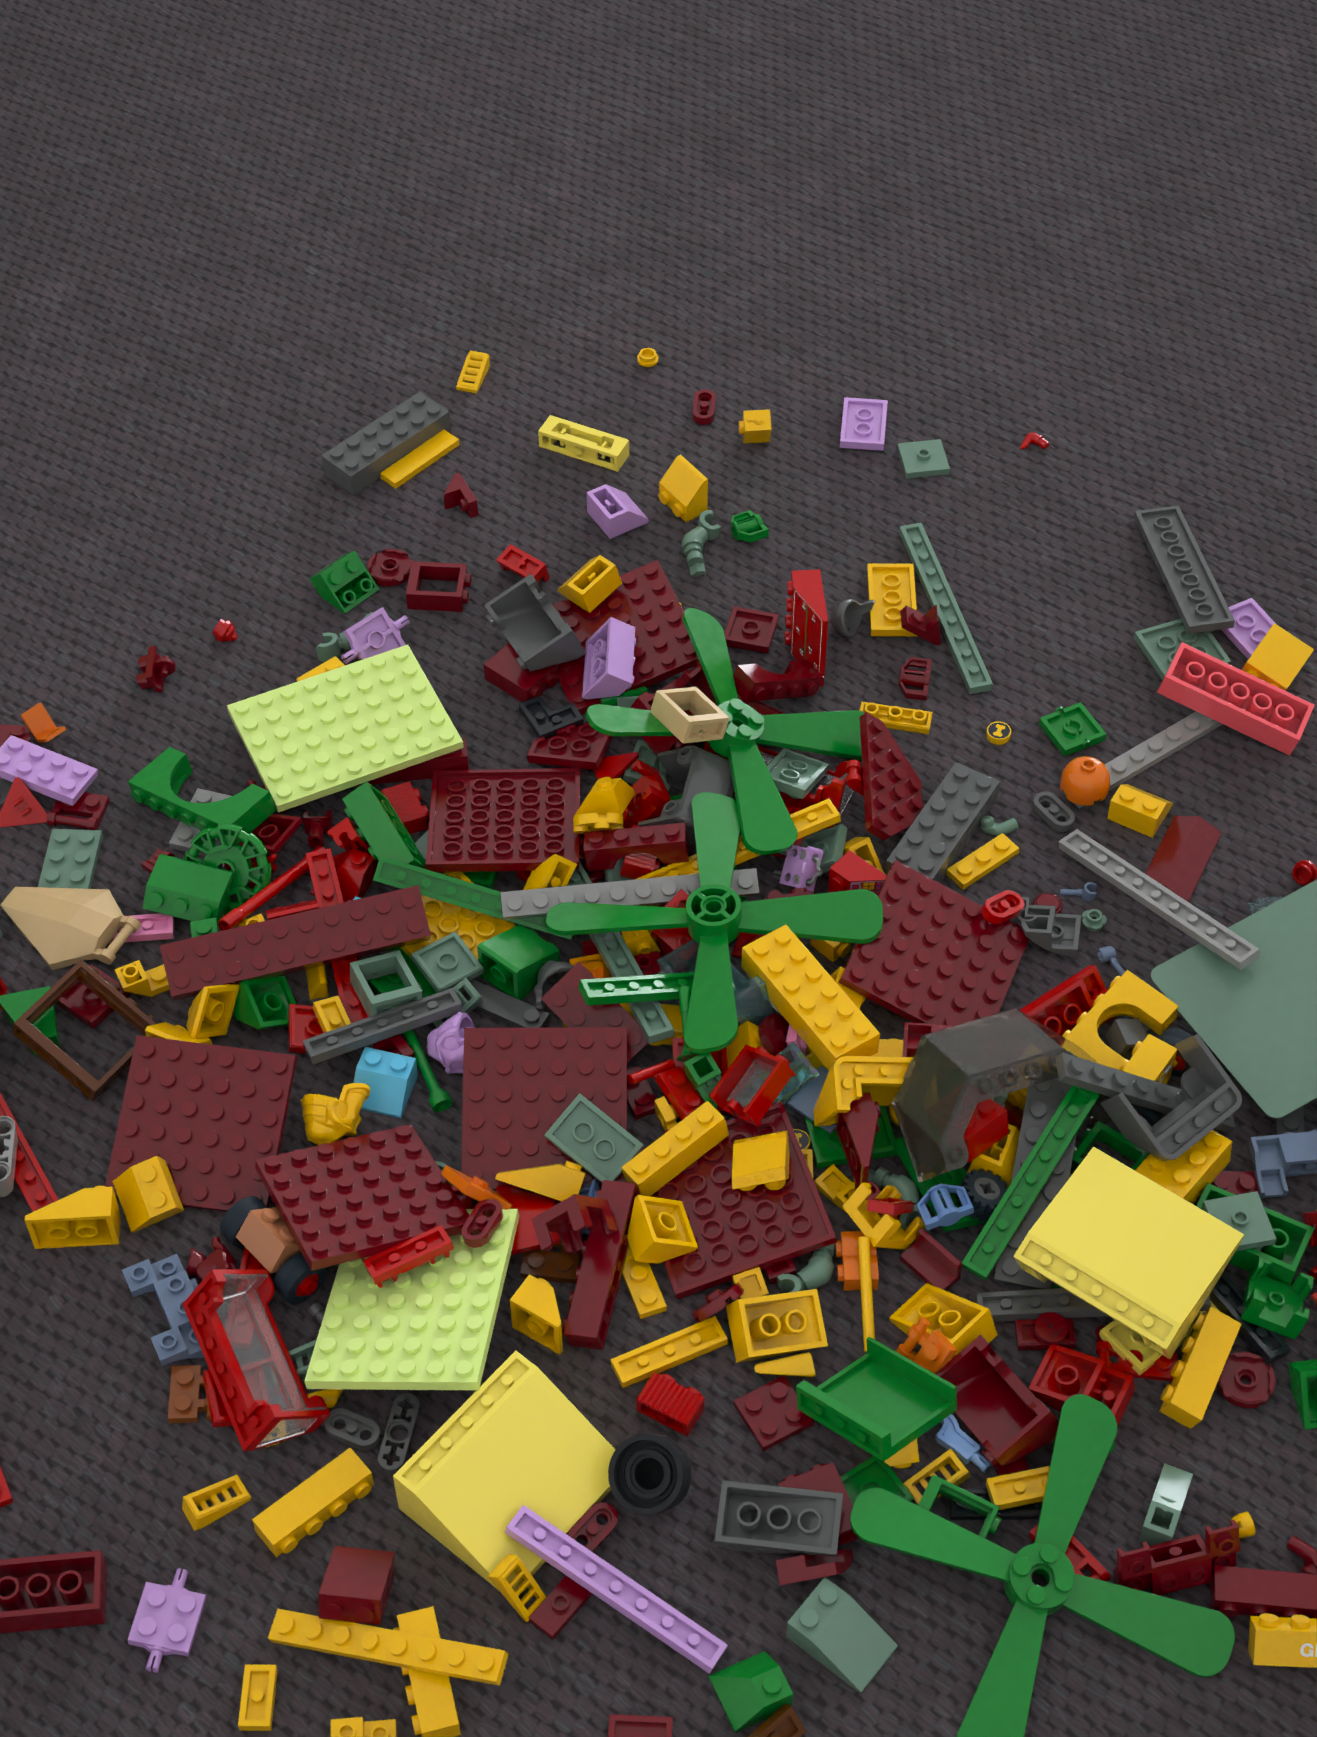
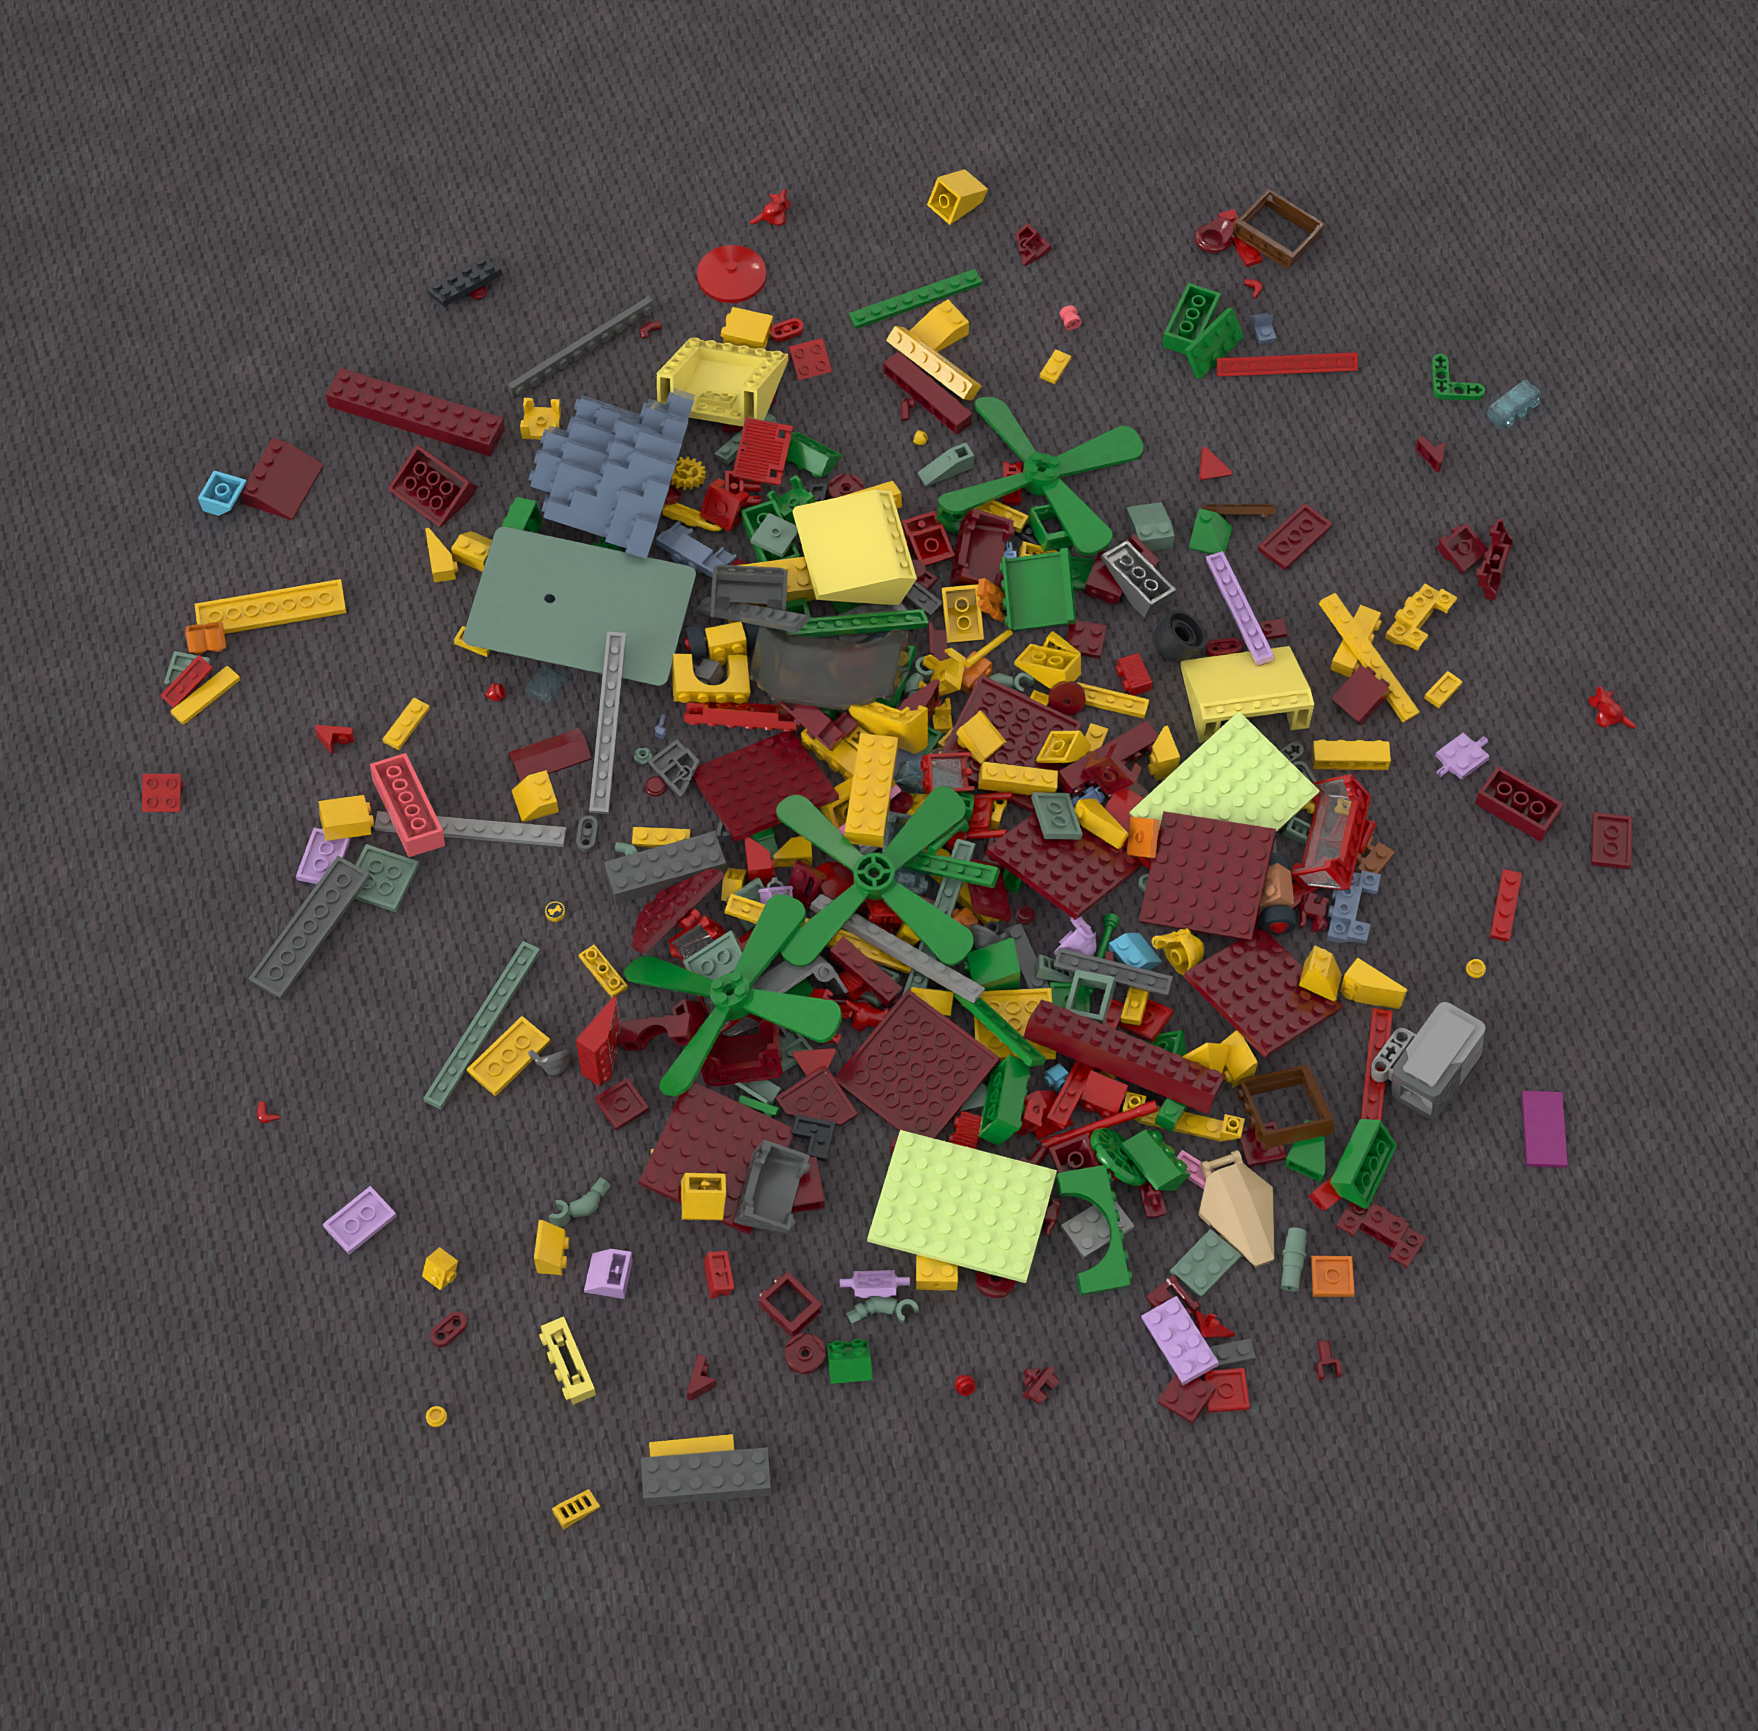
camera: 140 degrees left, 10 degrees up
(41, 724) = (1149, 1392): orange bracket -> none
(207, 1515) = (1398, 800): yellow slope -> none
(408, 1255) = (1214, 810): red plate -> none
(447, 962) = (1037, 987): sand green plate -> none
(482, 1223) = (1159, 805): dark red plate -> none
(499, 1579) = (1284, 643): yellow slope -> none
(594, 822) = (880, 994): yellow plate -> none
(607, 796) = (856, 1022): yellow slope -> none
(609, 660) = (749, 1125): lavender slope -> none
(670, 707) = (765, 978): tan window -> none
(748, 527) = (534, 1190): green piece -> none
(890, 1206) = (937, 667): red plate -> none
(915, 678) = (561, 984): dark red piece -> none
(922, 625) = (516, 1012): dark red slope -> none
(923, 458) = (354, 1159): sand green plate -> none
(944, 1216) = (915, 643): medium blue piece -> none
(1002, 907) = (698, 778): red plate -> none
(1072, 729) = (511, 876): green plate -> none
(1085, 780) = (553, 828): orange cylinder -> none
(1087, 893) = (627, 777): sand blue hand -> none
(1177, 1562) = (978, 441): dark red bracket -> none

